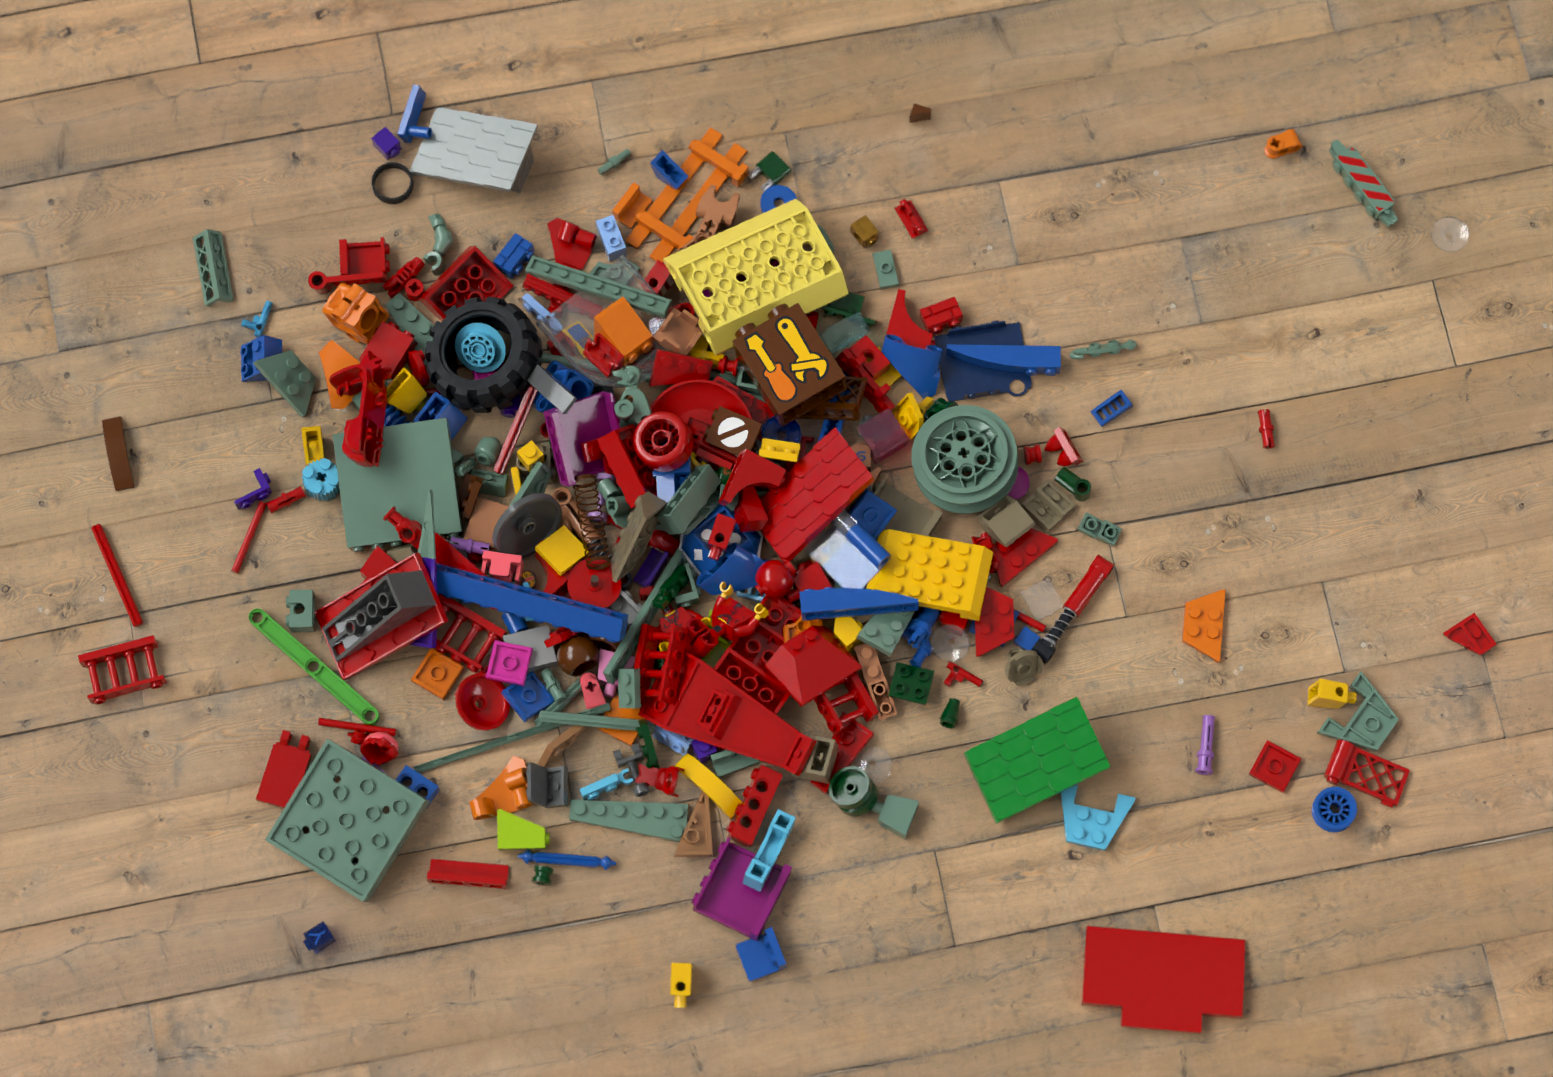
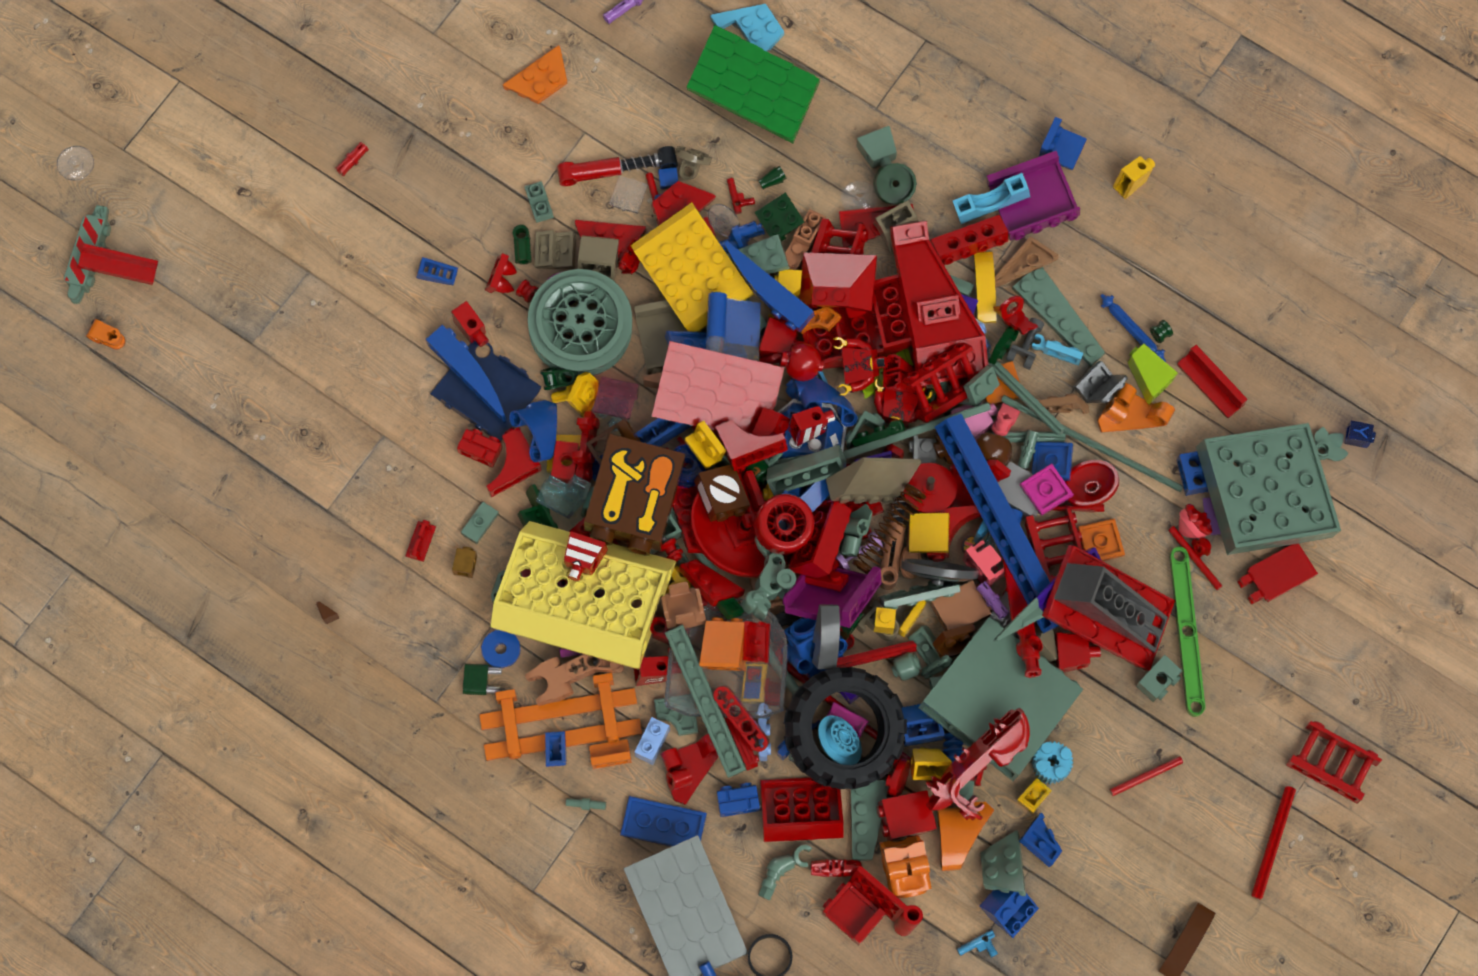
camera: 135 degrees left, 0 degrees up
(259, 494) = (1105, 797): dark purple bracket -> none
(281, 423) = (1041, 841): none -> blue wing
(285, 499) = (1092, 777): red pin -> none
(334, 911) = (1330, 444): none -> sand green plate
(414, 294) = (840, 851): red wheel -> none
(549, 198) = (661, 822): none -> blue tile
(581, 297) = (743, 716): none -> red beam
(645, 360) = (730, 608): none -> dark green tile
(777, 287) = (583, 555): none -> red torso
(863, 453) = (645, 402): nougat brick -> none
(1042, 388) = (469, 324): none -> red torso
(1096, 349) = (396, 316): sand green piece -> none
(1330, 192) = (117, 264): none -> red panel

